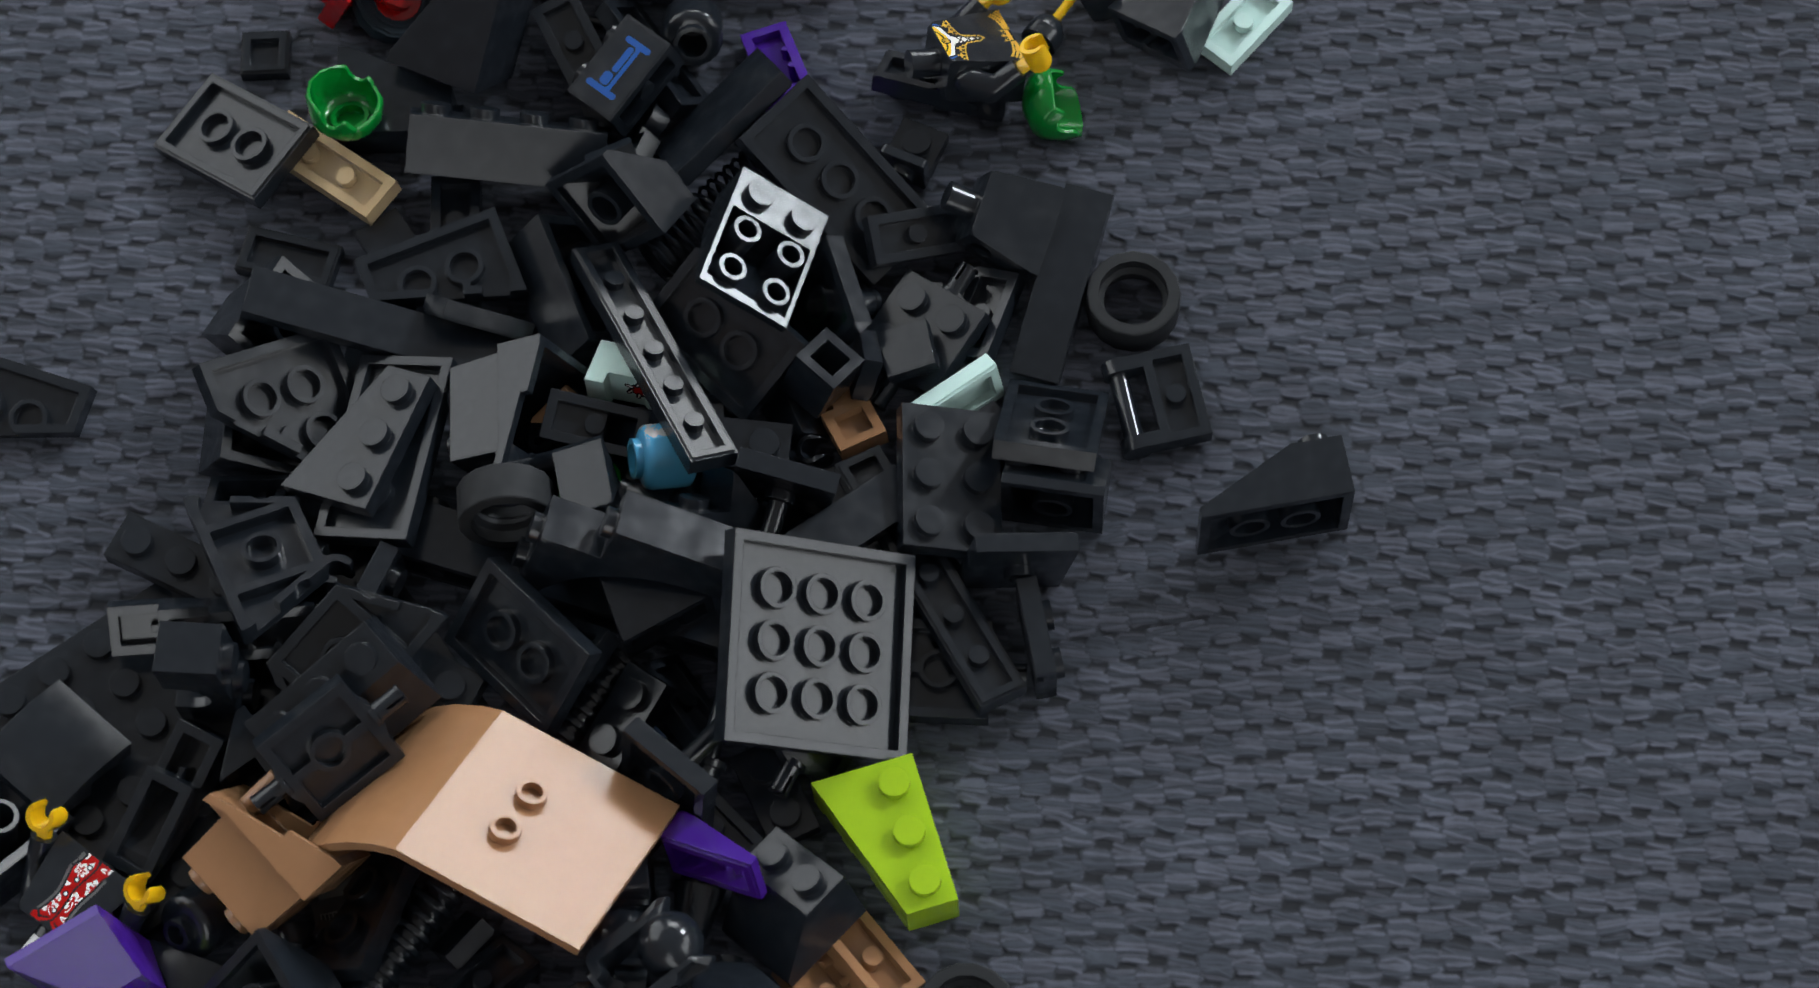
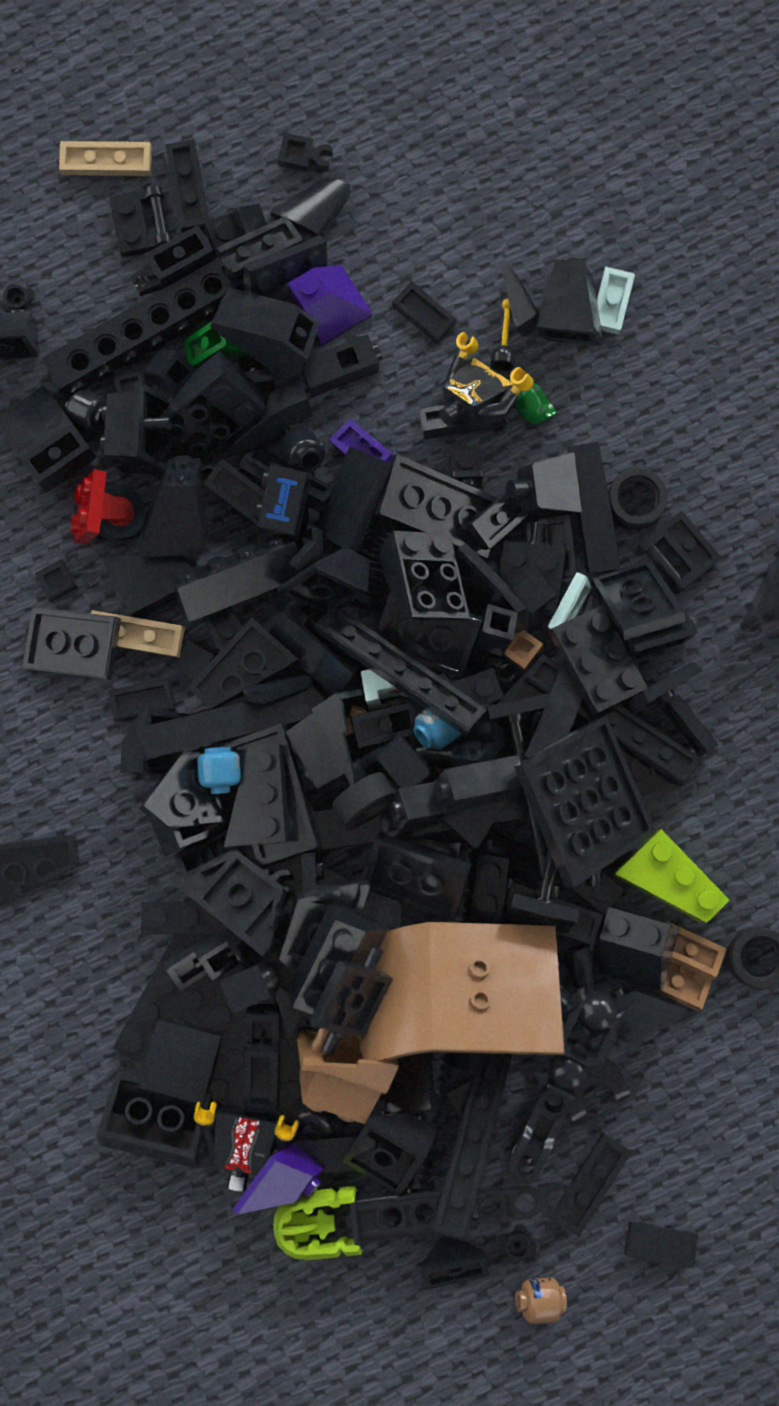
camera: 30 degrees left, 15 degrees up
(332, 377) = (219, 769): none -> dark azure head
(343, 104) = (130, 597): green hair -> none
(711, 857) = (584, 945): dark purple slope -> none

